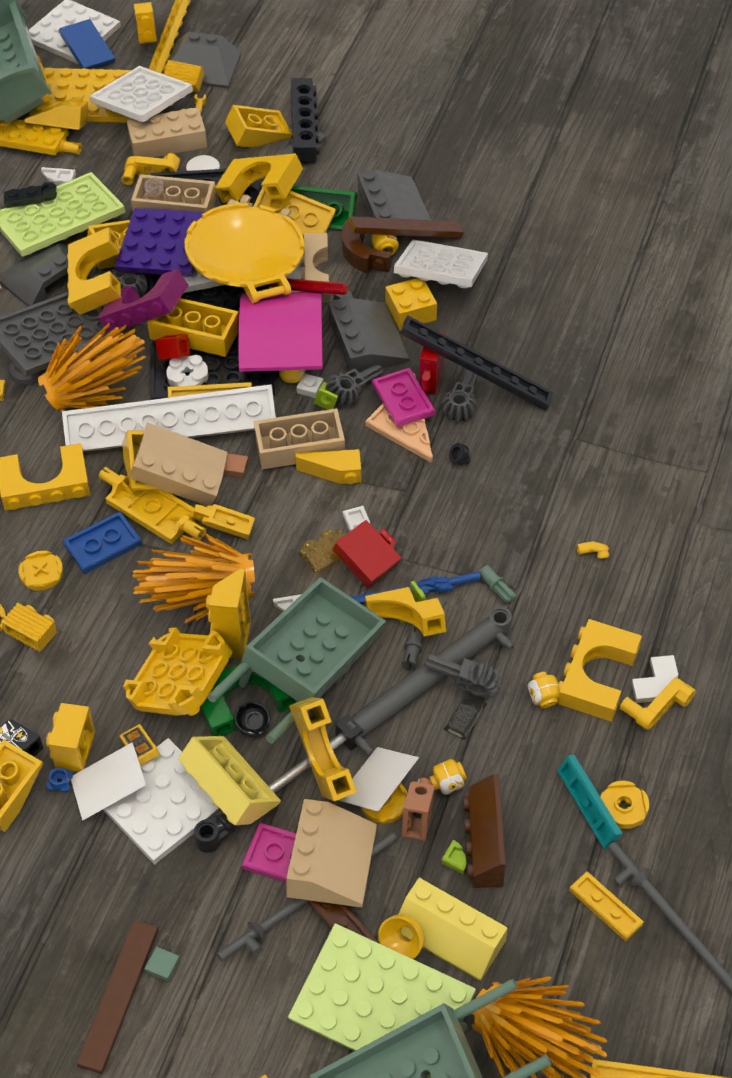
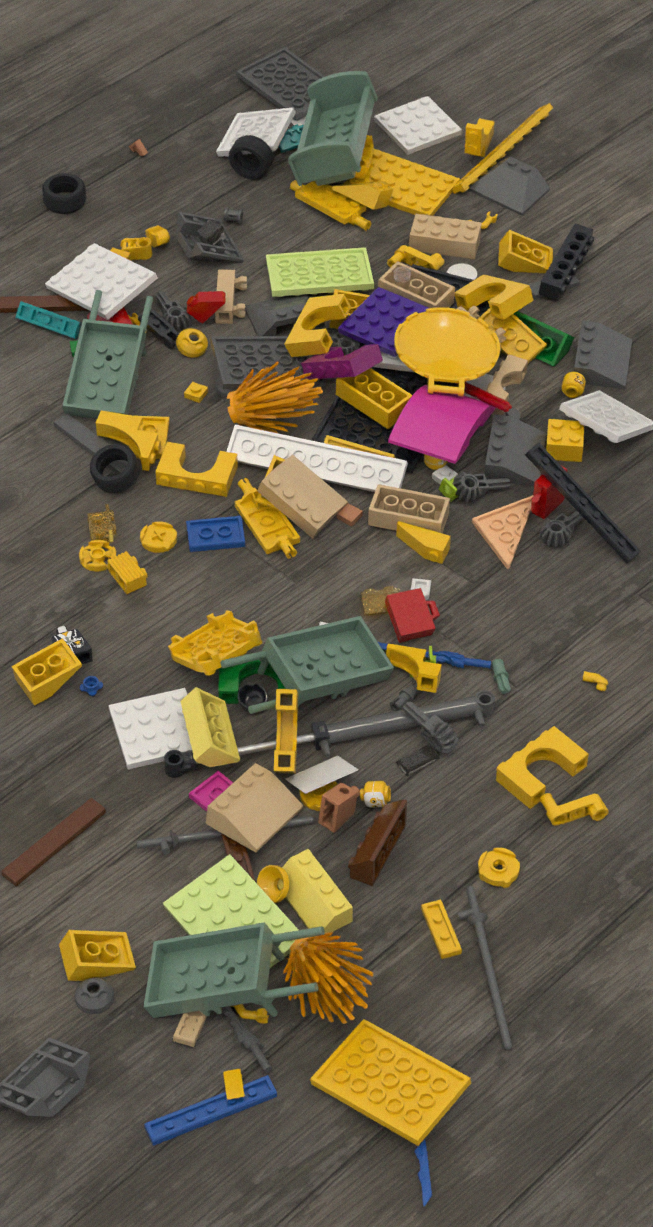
camera: 25 degrees right, 5 degrees down
(30, 195) = (305, 250): black hinge -> none
(58, 175) = (339, 242): white tile -> none
(71, 737) = (113, 658): yellow brick -> none
(86, 45) = (420, 141): blue tile -> none
(107, 781) = (123, 698): white sticker -> none
(141, 93) = (439, 196): white plate -> none
(143, 745) = (160, 683): tile -> none
(162, 964) = (95, 834): sand green tile -> none
(173, 346) = (347, 405): red brick -> none
(178, 367) = (357, 425): white plate -> none
(185, 72) = (486, 193): yellow brick -> none
(191, 579) = (276, 581): light orange plant -> none
(224, 520) = (316, 550): yellow hinge -> none
(231, 611) = (274, 609): yellow slope -> none
(361, 256) = (547, 373): reddish brown arch -> none
(403, 397) = (512, 510): dark pink tile -> none
(405, 227) = (596, 377): reddish brown tile -> none
(455, 857) = (347, 850): lime tile -> none
(459, 454) = (532, 570): black tile -> none
(544, 690) = (487, 763): yellow head -> none
(589, 801) = (472, 852): teal plate -> none
(663, 671) = (593, 785): white tile -> none

